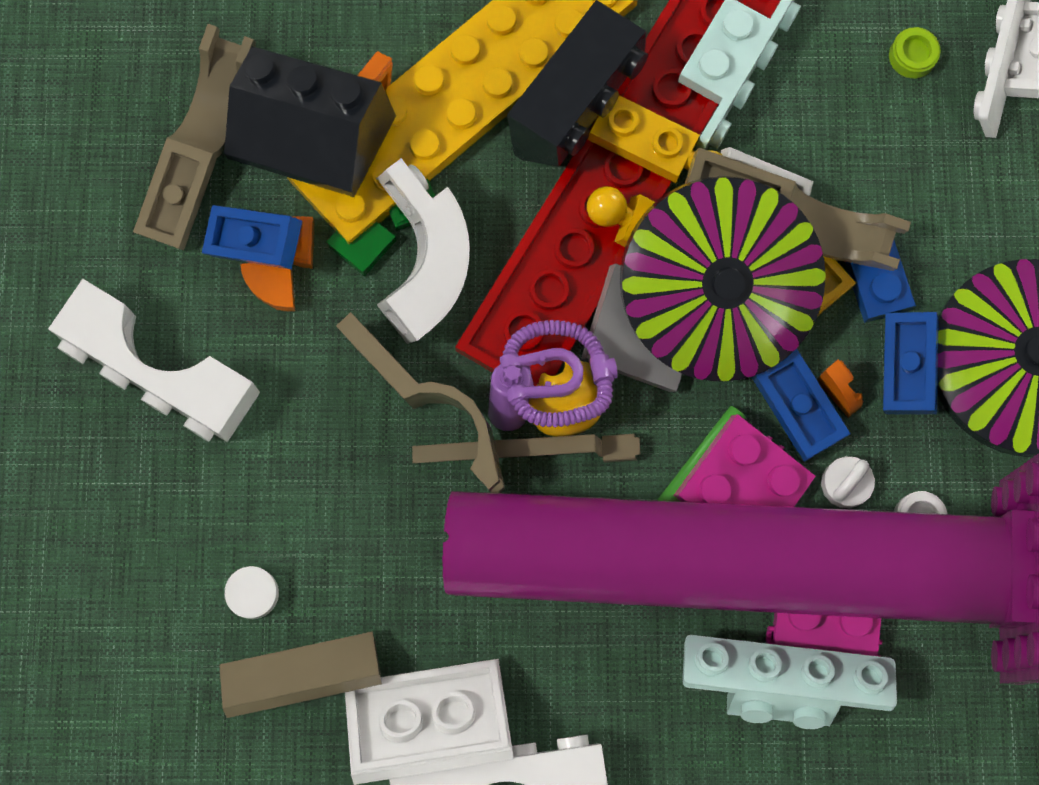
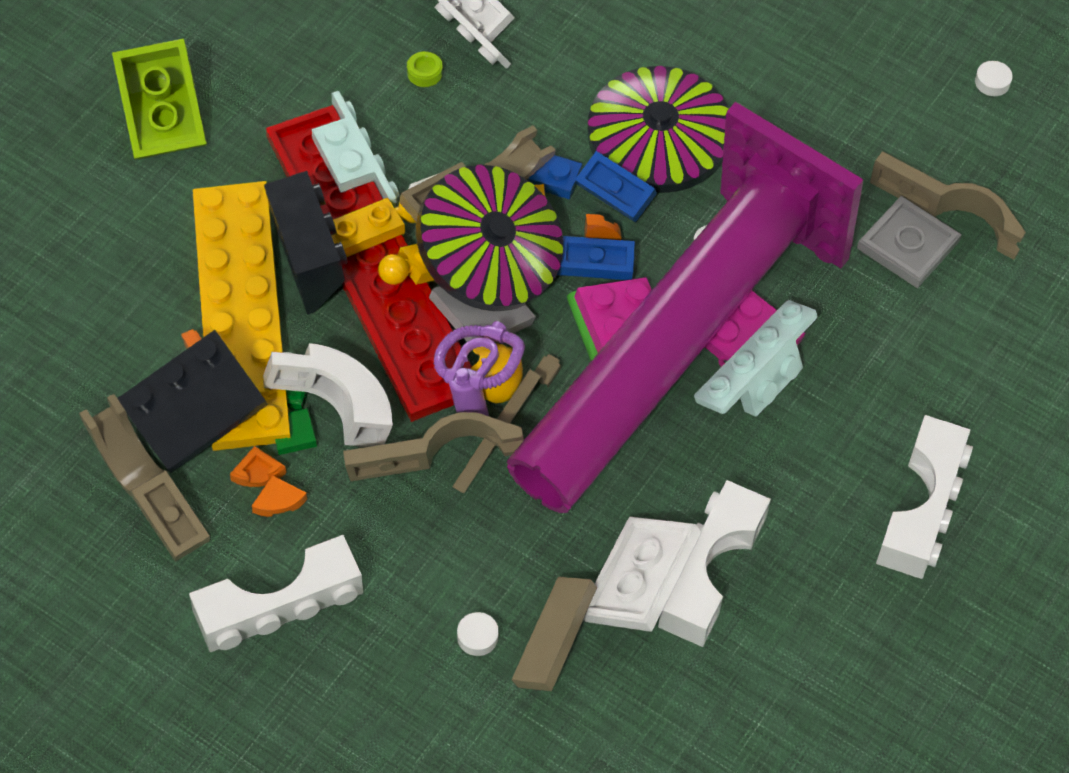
camera: 55 degrees left, 20 degrees down
(252, 236) = (241, 483): blue plate -> none
(848, 482) = (658, 262): white tile -> none

